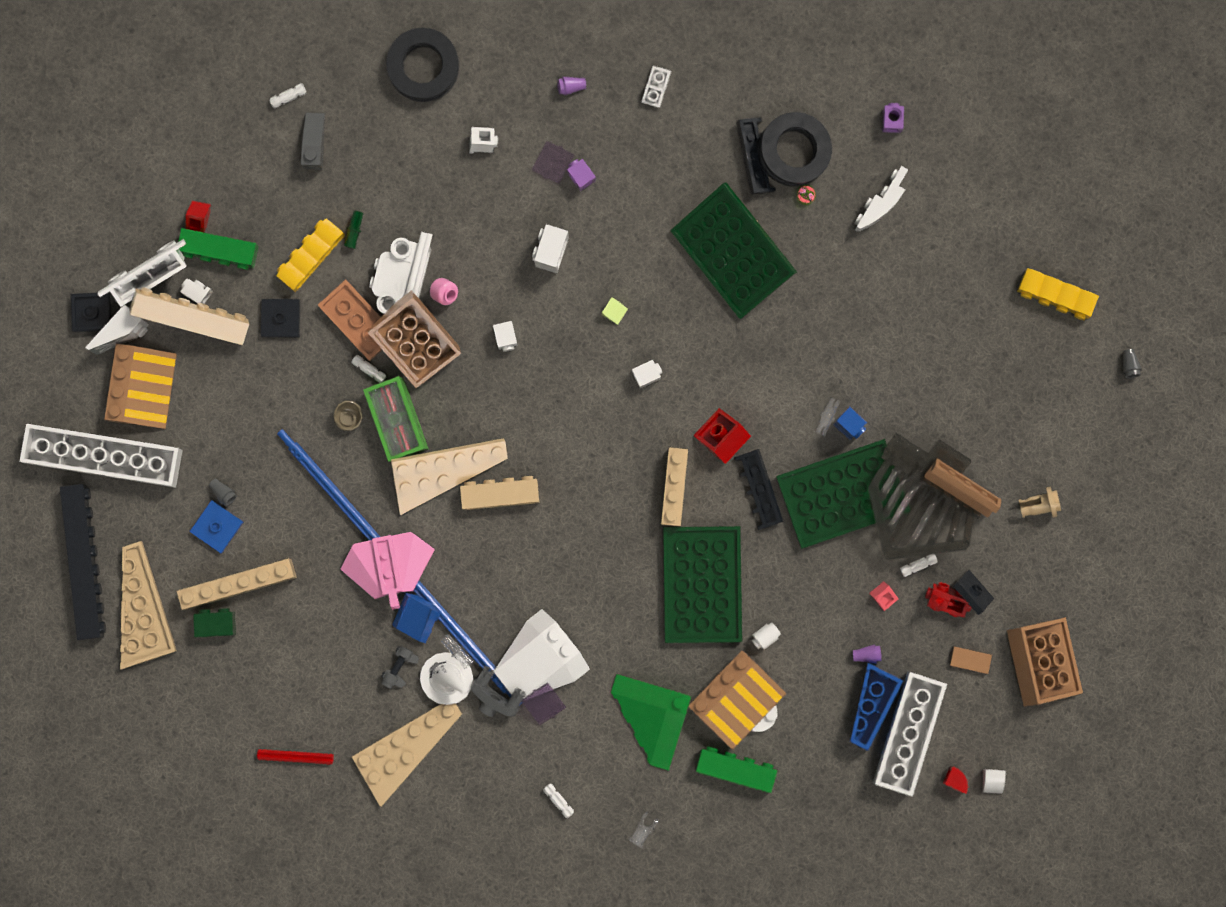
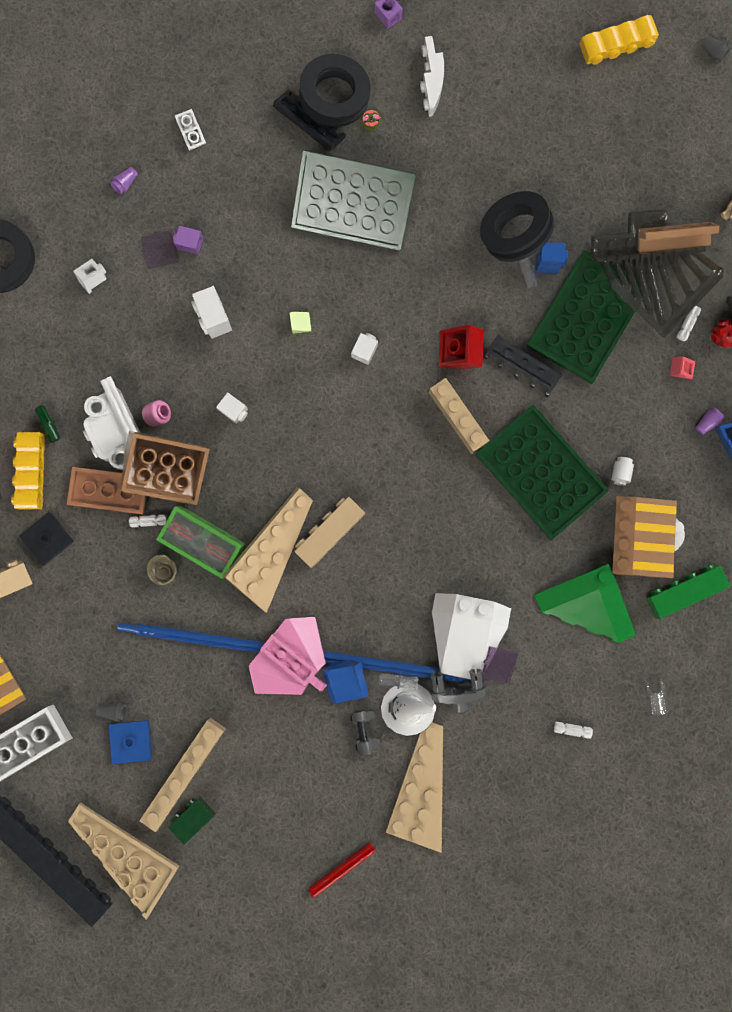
camera: 40 degrees left, 0 degrees up
(843, 356) = (528, 242): none -> black tyre

